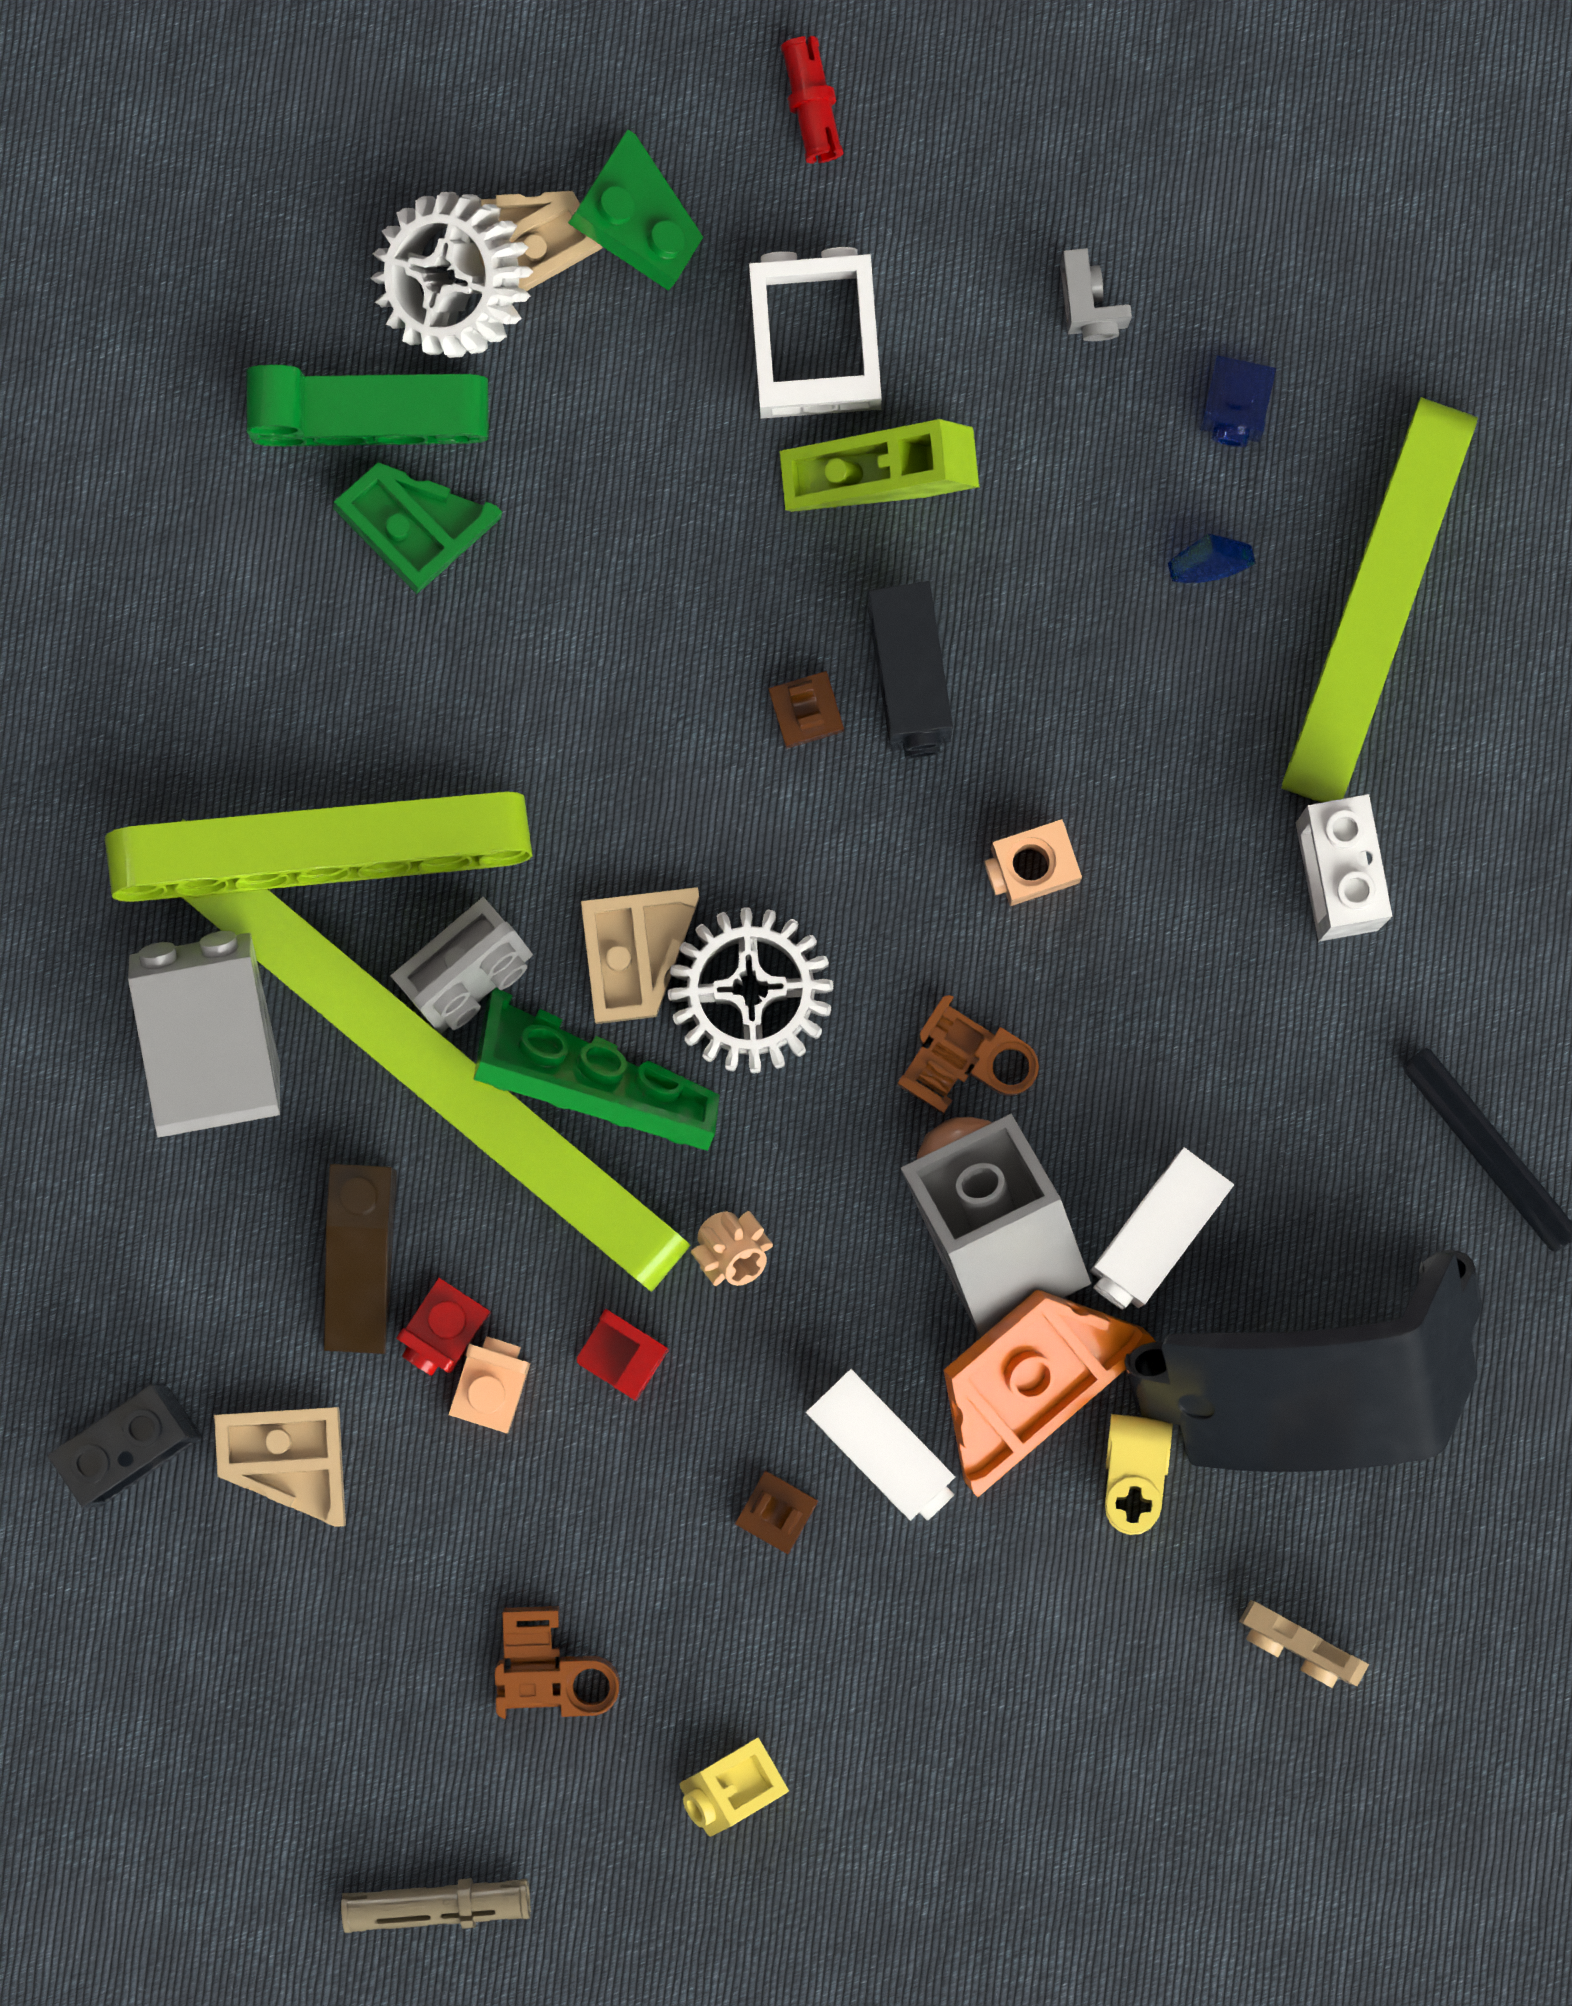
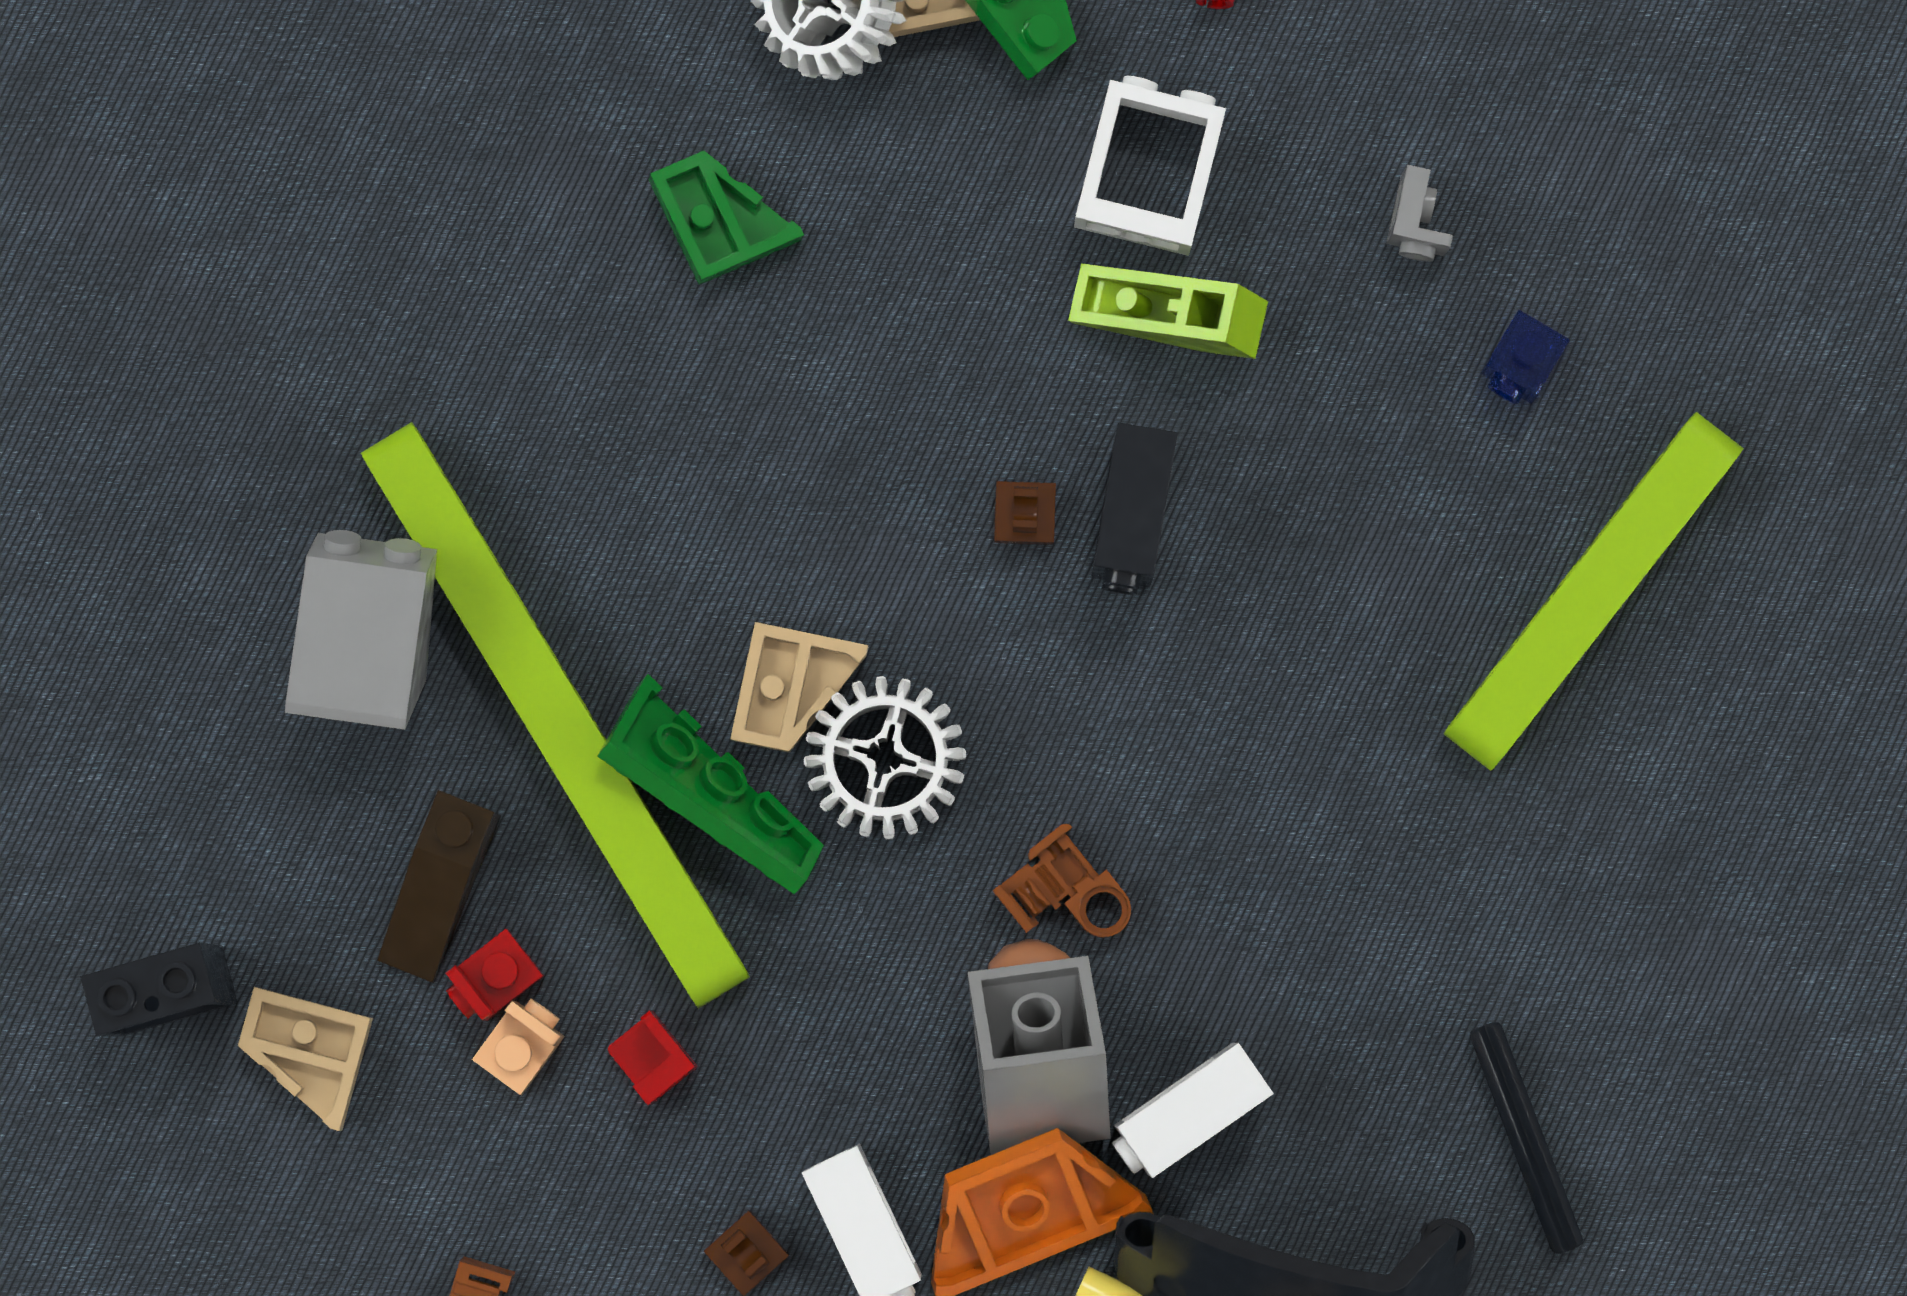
camera: 15 degrees right, 0 degrees up
(317, 846) = (526, 490): lime beam -> none
(364, 409) = (707, 97): green beam -> none
(463, 967) = (624, 647): light grey bracket -> none
(732, 1248) = (786, 993): light nougat gear -> none
(1053, 844) = (1214, 719): light nougat brick -> none
(1211, 560) = (1449, 498): clear blue tile -> none
(1342, 887) = (1469, 845): white window -> none

